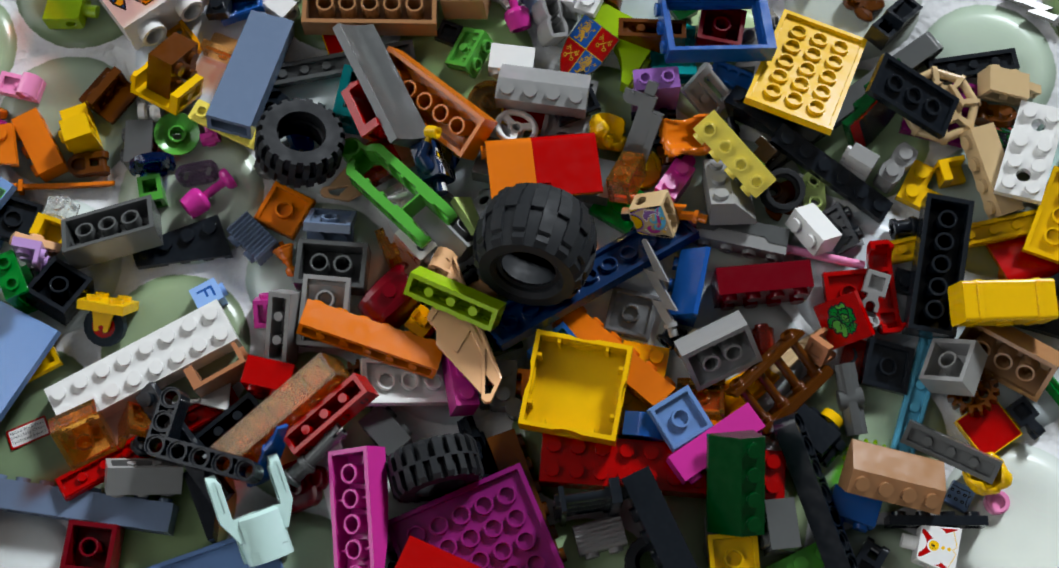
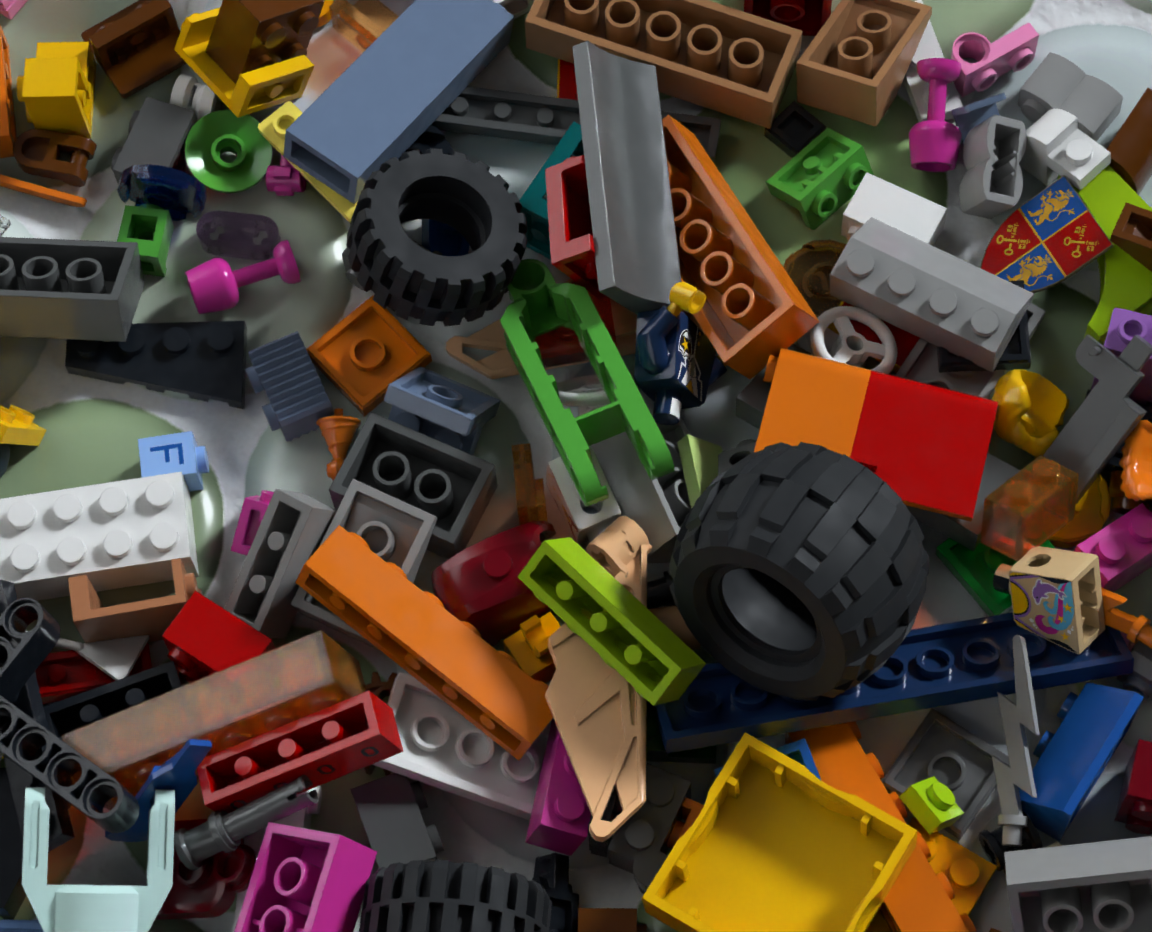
camera: 25 degrees right, 5 degrees down
(631, 331) = (932, 804): none -> lime plate

